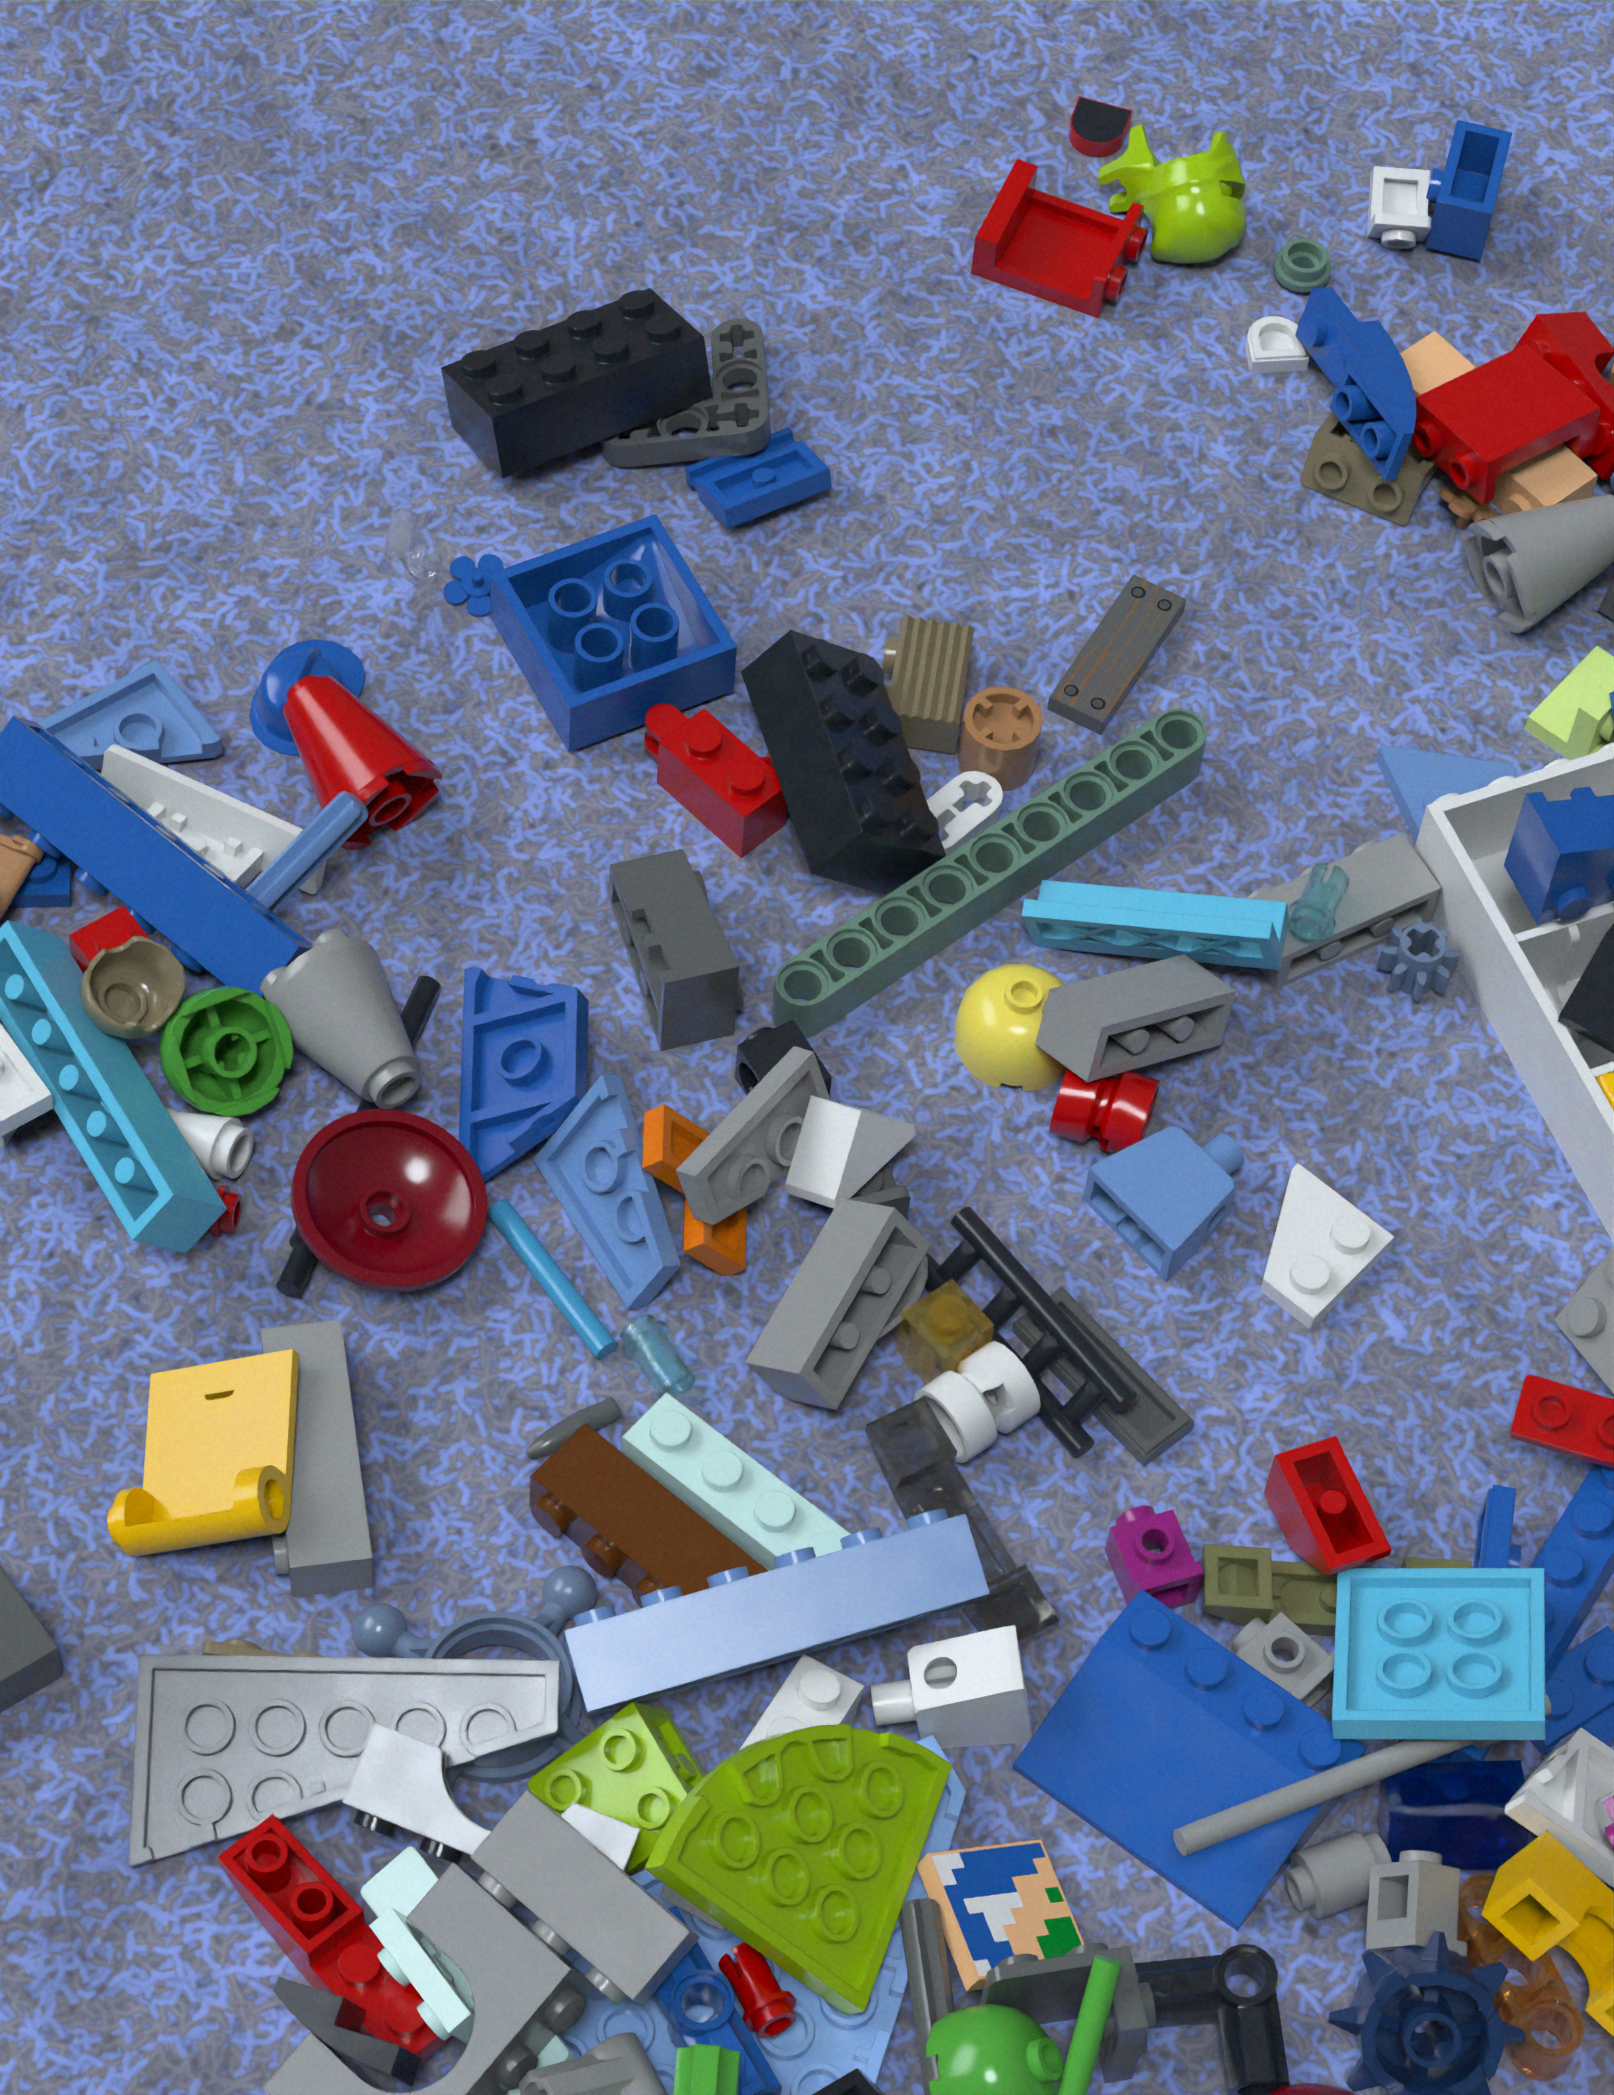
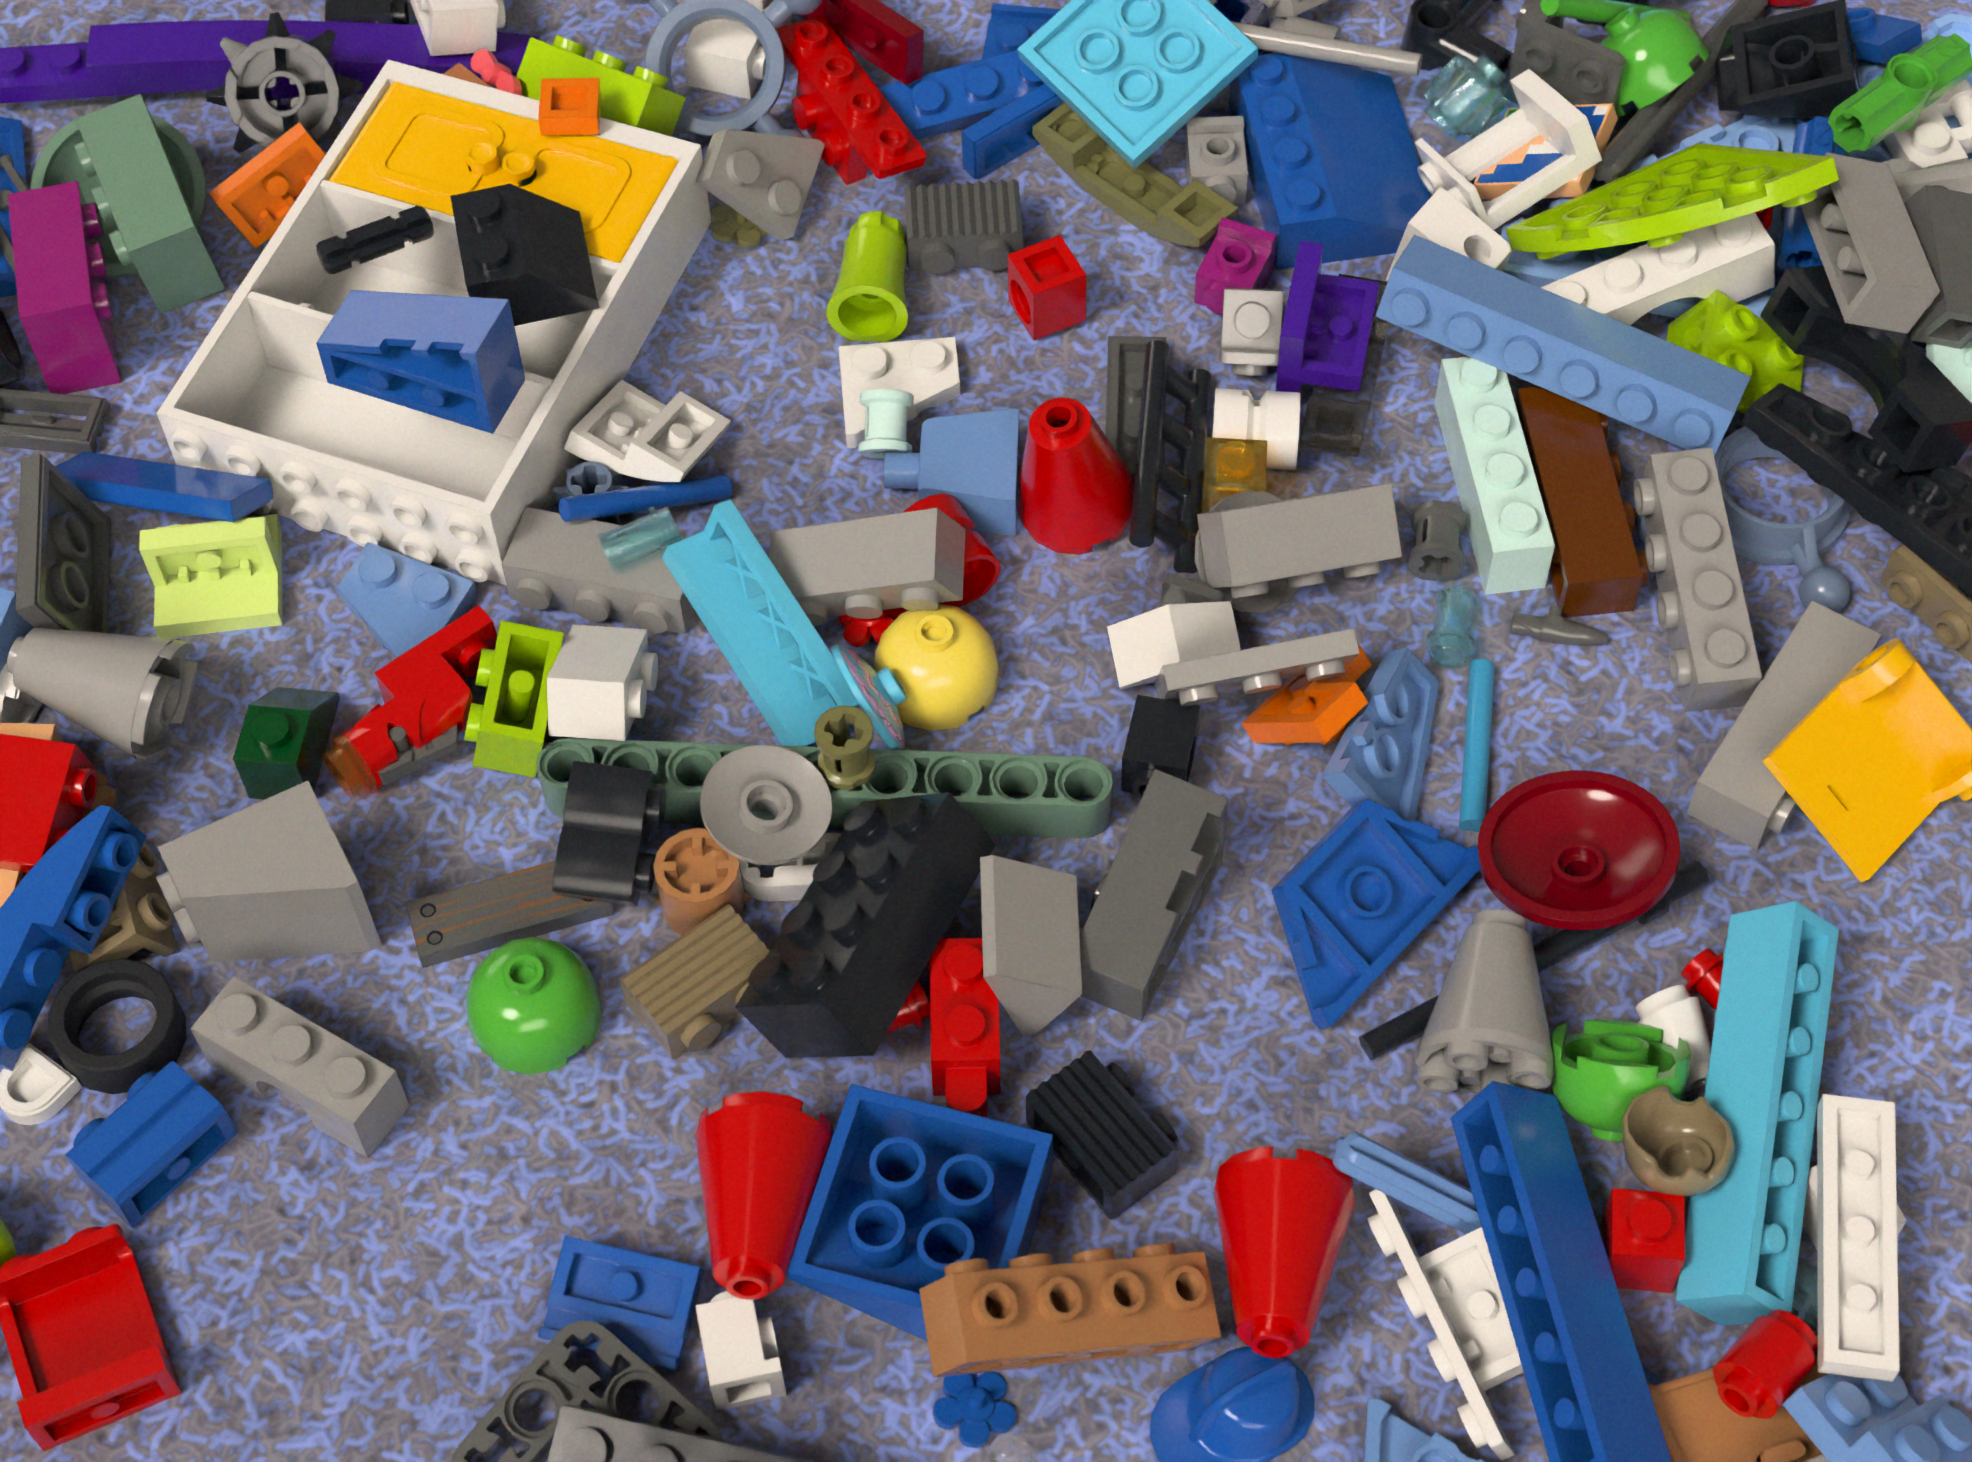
camera: 130 degrees left, 0 degrees up
(450, 611) = (1067, 1311): none -> medium nougat brick
(484, 1508) = (1697, 580): none -> light grey brick
(553, 781) = (1103, 1133): none -> black brick
(651, 486) = (739, 1352): none -> white brick
(727, 826) = (1030, 940): none -> light grey slope
(732, 555) = (757, 1183): none -> red cone
(737, 1419) = (1437, 544): none -> dark grey bush
(995, 763) = (772, 781): none -> light grey dish
(995, 844) = (835, 743): none -> olive bush
(997, 1890) = (1541, 114): none -> white panel
(1014, 1510) = (1324, 326): none -> dark purple bracket
(1024, 600) = (533, 1005): none -> bright green cylinder
(1027, 913) = (876, 694): none -> medium azure dish
(1068, 1500) = (1251, 329): none -> bracket
(1072, 1223) = (1072, 480): none -> red cone
(1075, 449) = (332, 1080): none -> light grey arch
(1091, 698) = (607, 834): none -> black brick
(1134, 1909) = (1466, 96): none -> clear light blue head
(1155, 354) = (150, 1142): none -> blue brick
(1227, 804) = (600, 682): none -> white brick
(1259, 434) = (97, 987): none -> black tyre
(1262, 519) = (267, 884): none -> light grey slope
(1273, 757) = (515, 710): none -> lime brick
(1278, 1180) = (885, 422): none -> light aqua bush
(1279, 1396) = (1046, 287): none -> red brick
(1324, 1508) = (1100, 200): red slope -> none
(1337, 719) = (421, 709): none -> red plate
(1371, 975) = (641, 498): none -> blue bar
(1402, 636) = (284, 740): none -> dark green slope
(1420, 1424) = (963, 225): none -> dark grey brick
(1436, 1310) = (871, 281): none -> lime plant
(1438, 1034) = (645, 437): none -> white slope

